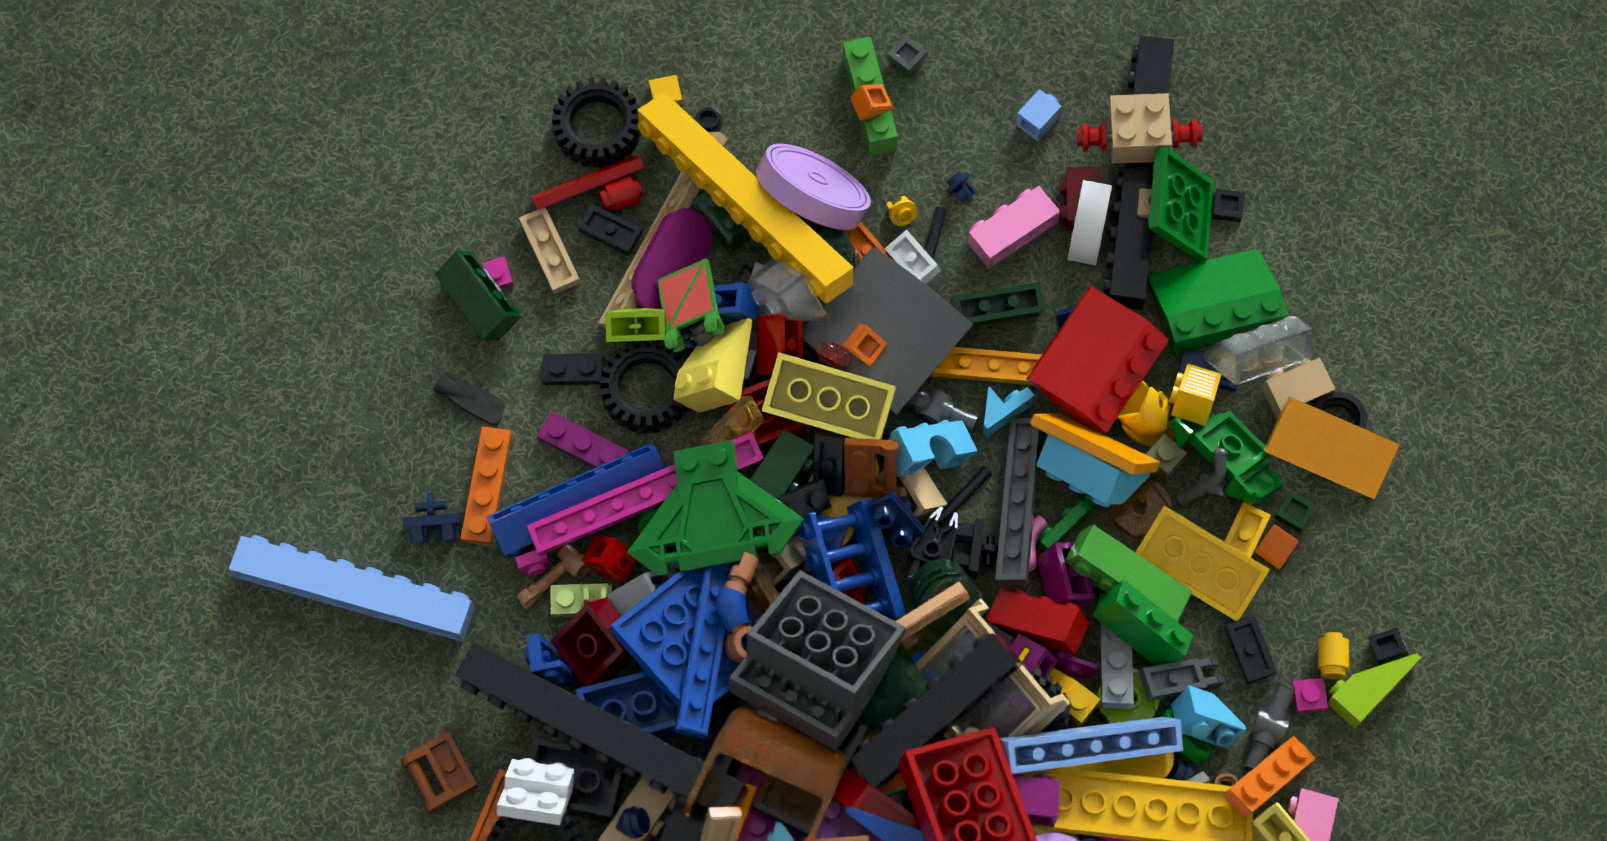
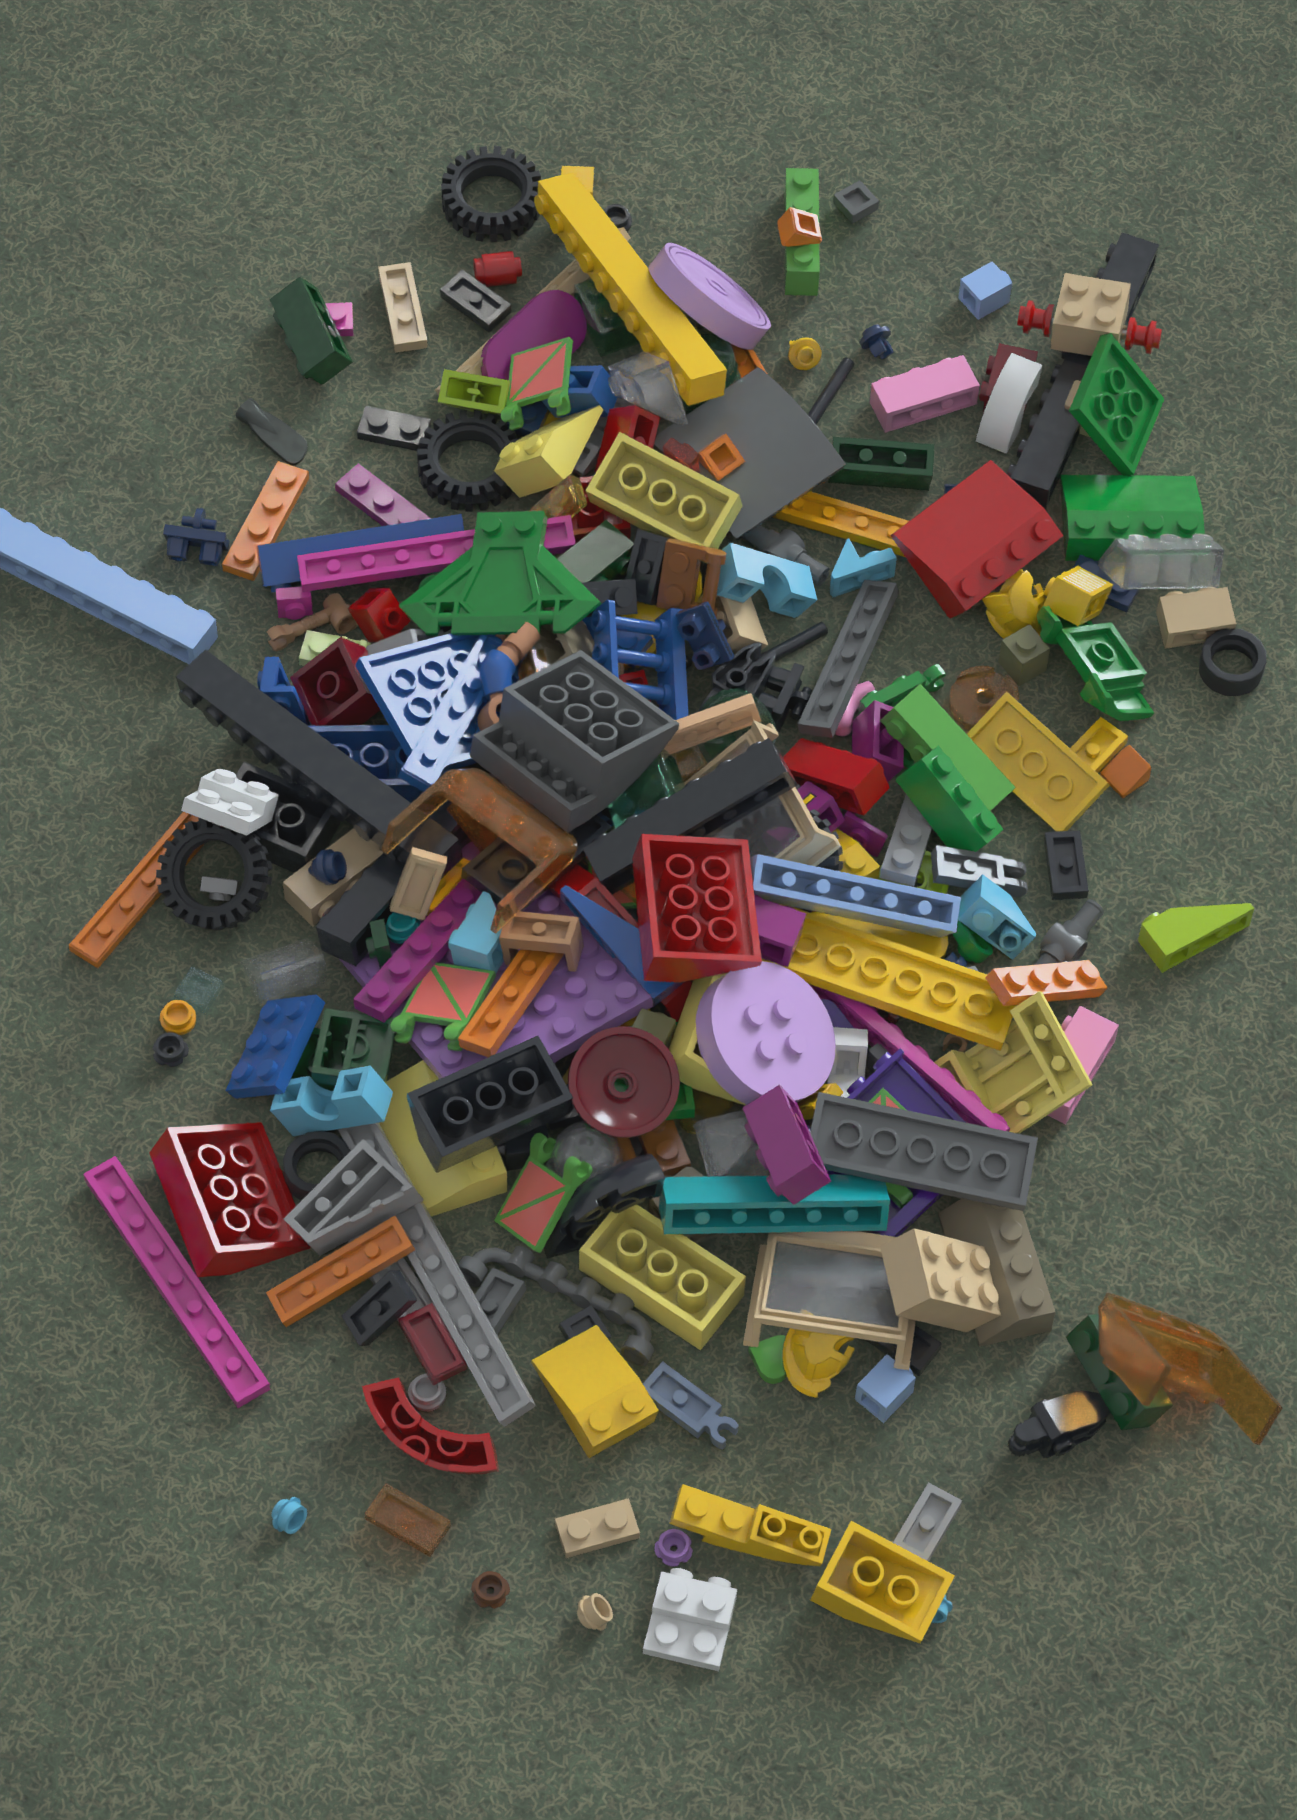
camera: 10 degrees right, 10 degrees down
(447, 765) = (143, 781): dark orange plate -> none
(587, 182) = (464, 249): red tile -> none
(699, 333) = (544, 415): dark grey plate -> none
(913, 257) = (805, 394): white plate -> none
(1087, 473) = (936, 640): medium azure slope -> none
(1095, 443) = (948, 613): light orange tile -> none
(1211, 484) = (1066, 683): dark grey piece -> none
(1228, 205) = (1173, 426): black tile -> none
(1295, 511) = (1157, 740): dark green plate -> none
(1310, 695) = (1120, 926): dark pink plate -> none
(1331, 447) = (1215, 681): light orange tile -> none
(1333, 656) = (1157, 889): yellow brick -> none
(1388, 646) = (1221, 892): black plate -> none

